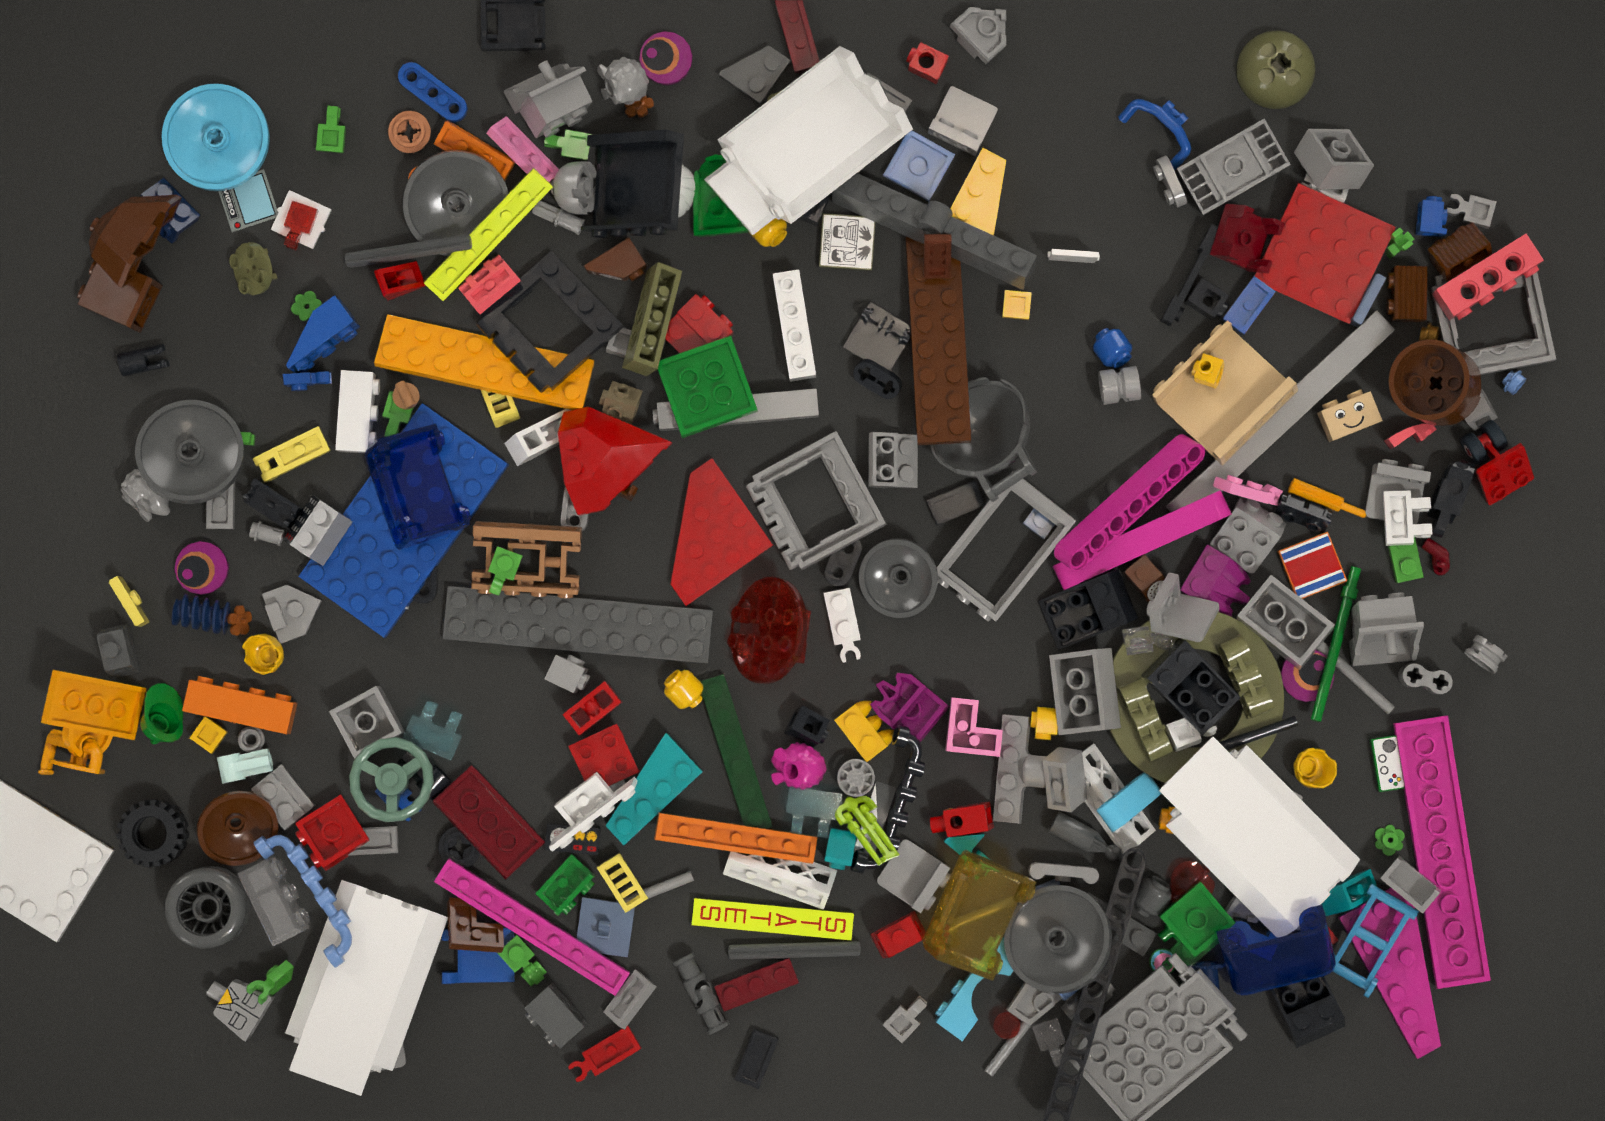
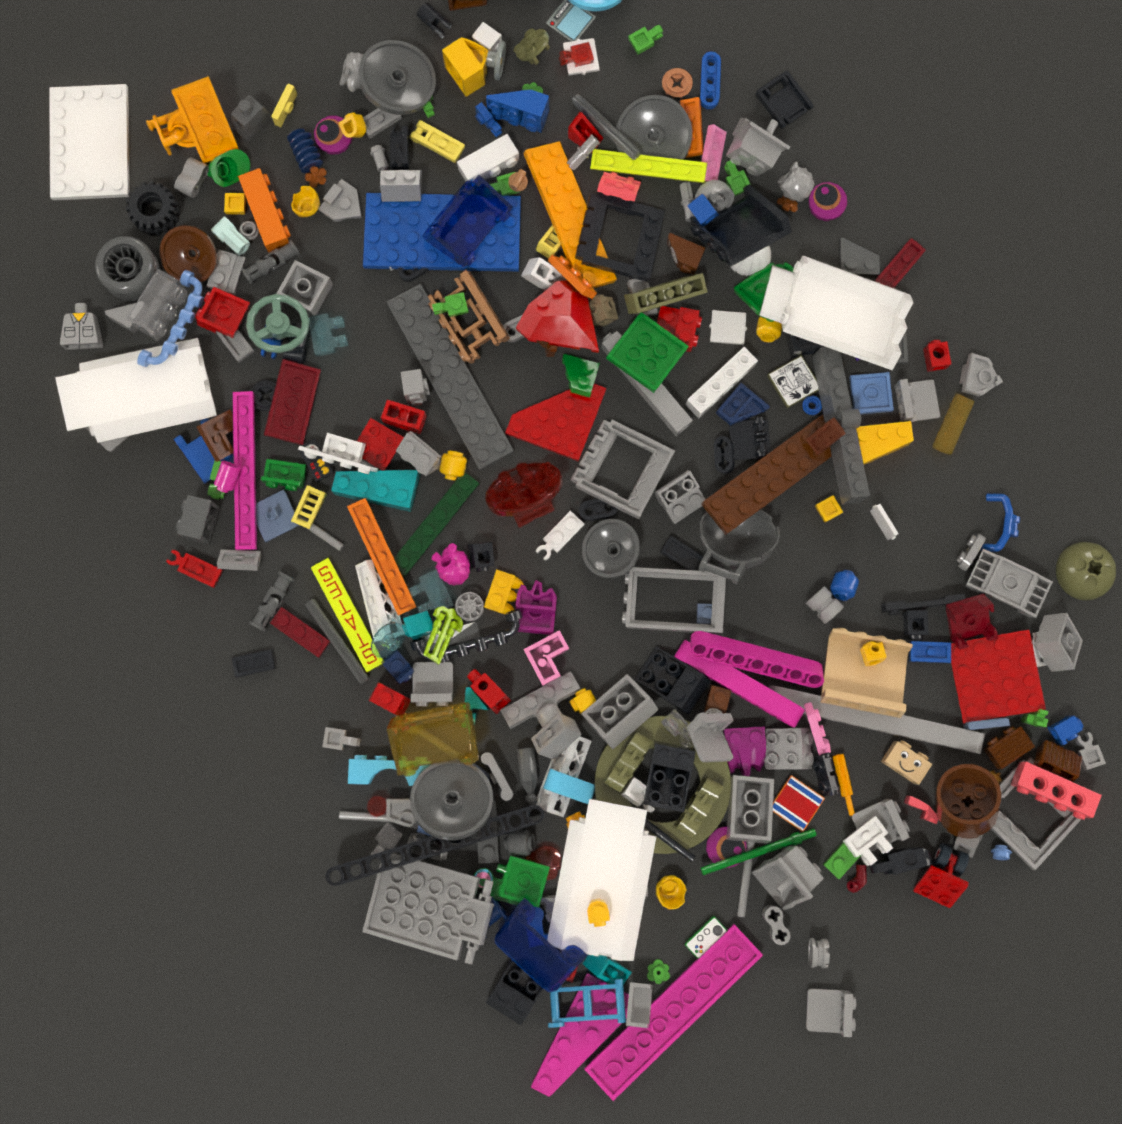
camera: 50 degrees right, 5 degrees down
(143, 764) = (191, 177): none -> light grey axle
(208, 314) = (487, 37): none -> white panel
(211, 540) = (353, 125): none -> yellow plate
(226, 356) = (469, 62): none -> yellow piece
(258, 945) = (119, 316): none -> light grey slope
(276, 978) = (109, 338): bright green plate -> none
(306, 751) = (269, 262): none -> dark grey piece
(420, 297) = (583, 152): none -> light grey axle
(528, 951) = (227, 476): none -> dark pink brick
(561, 410) = (572, 275): none -> orange plate
(585, 211) = (703, 210): none -> blue panel
(650, 721) = (419, 454): none -> light grey bracket
(677, 476) = (580, 374): none -> green wing
(734, 272) = (728, 327): none -> white piece
(833, 893) = (387, 640): none -> clear light blue dish
(835, 321) = (741, 406): none -> dark blue wing
(870, 901) = (398, 667): none -> dark blue bracket
(886, 232) = (816, 401): none -> blue plate
(1015, 98) = (953, 424): none -> clear yellow plate
(1285, 863) = (598, 912): none -> yellow plate
(1554, 683) = (830, 1011): none -> light grey bracket

